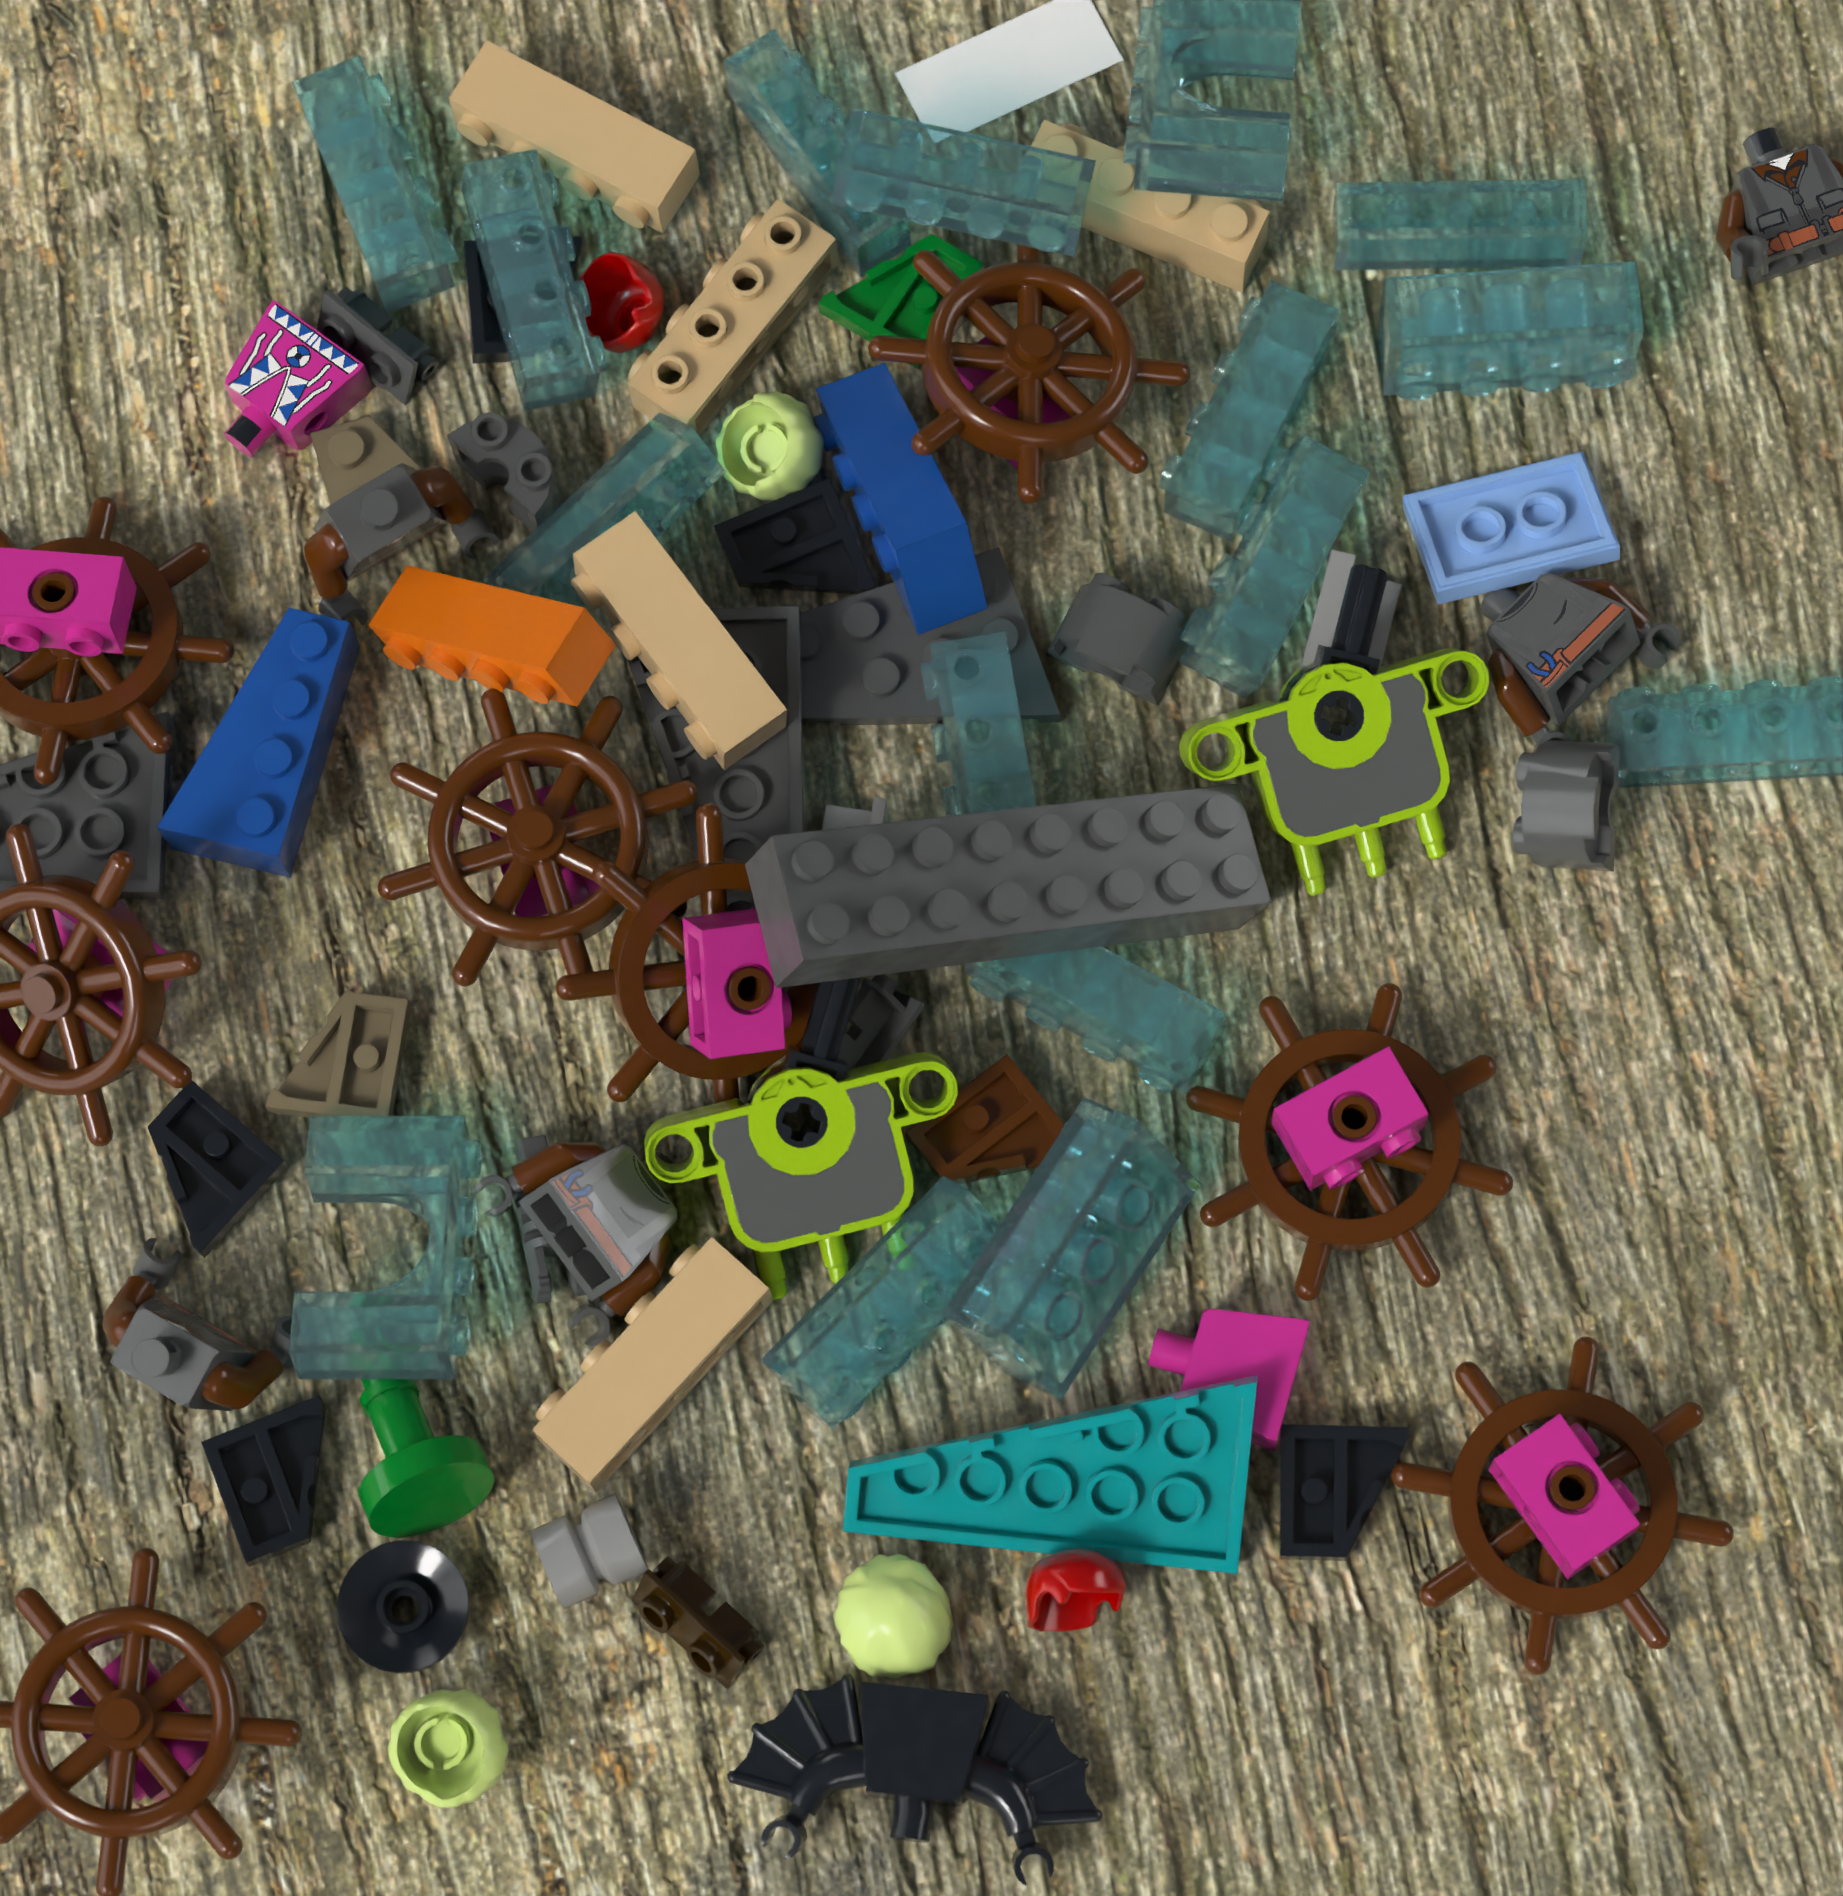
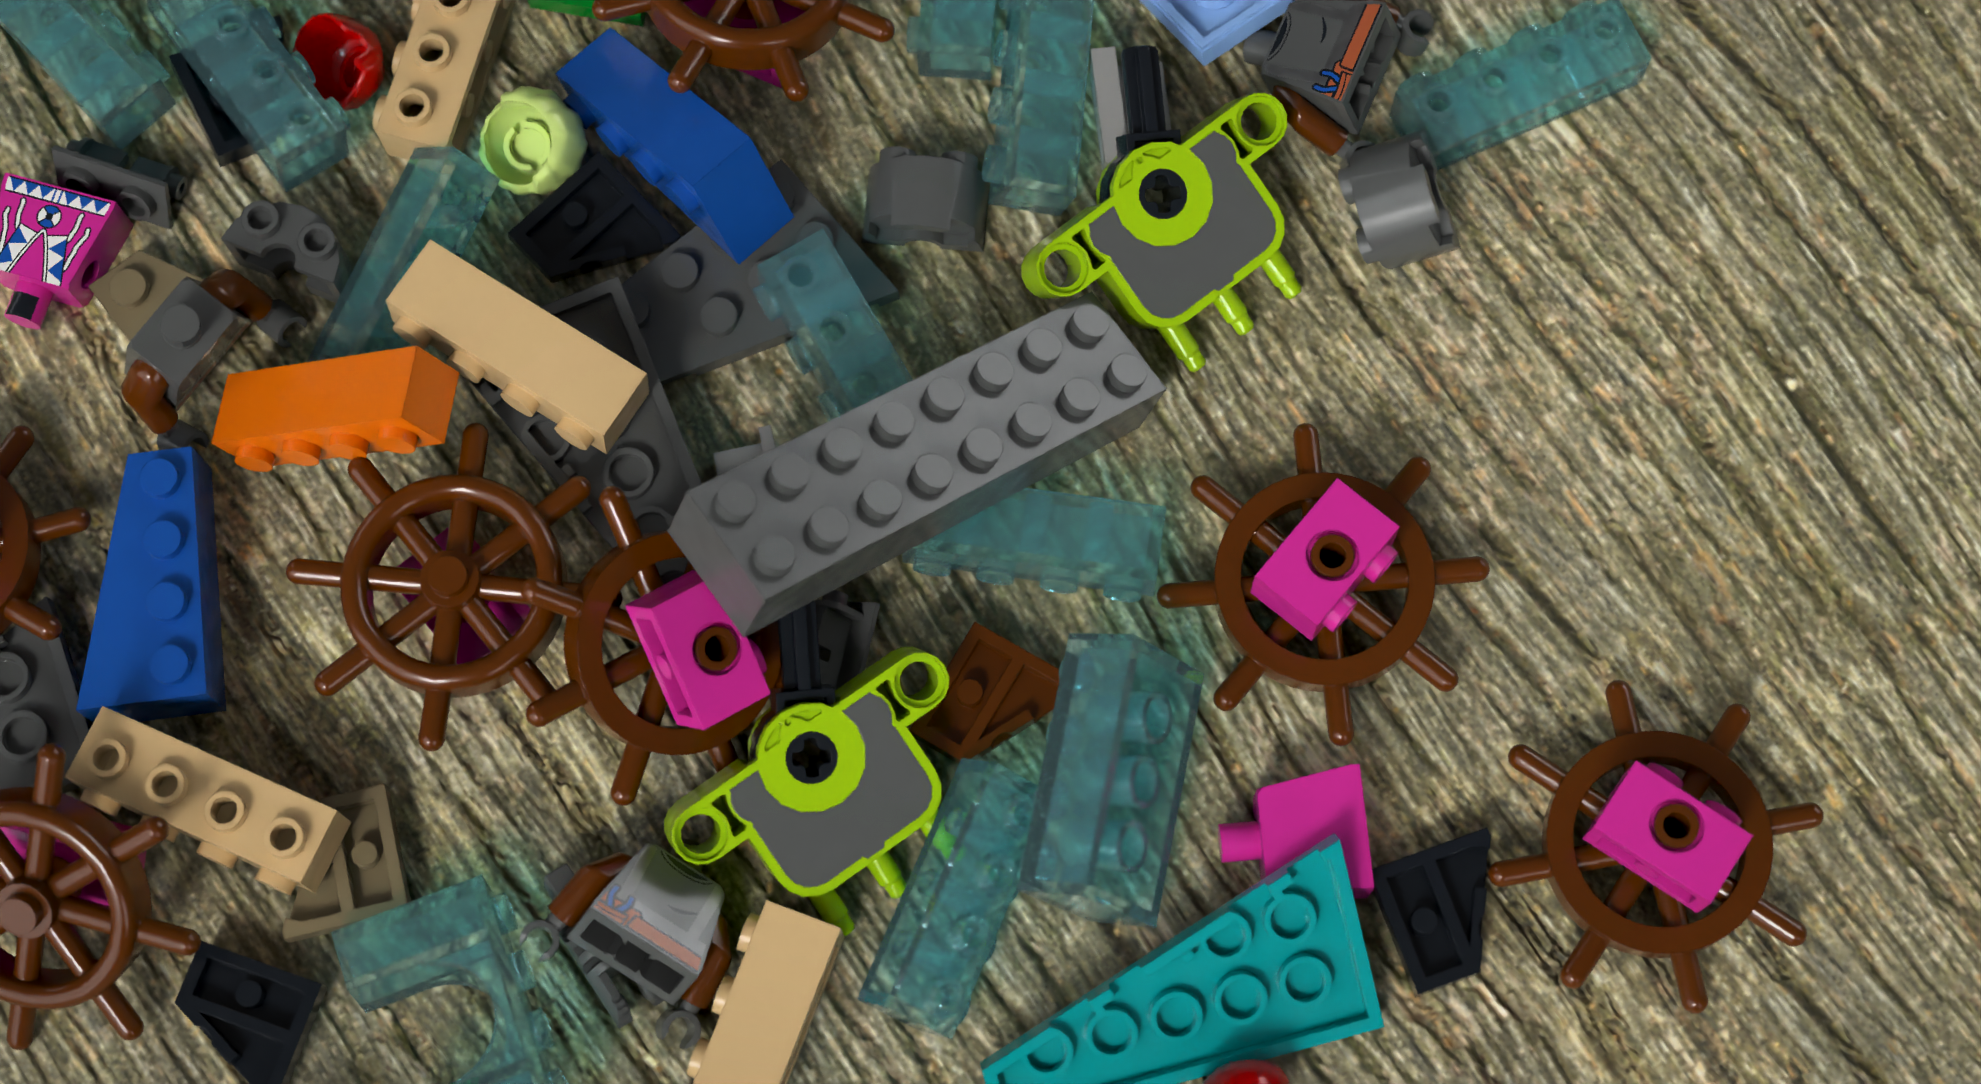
camera: 25 degrees left, 0 degrees up
(245, 955) = (208, 800): none -> tan brick

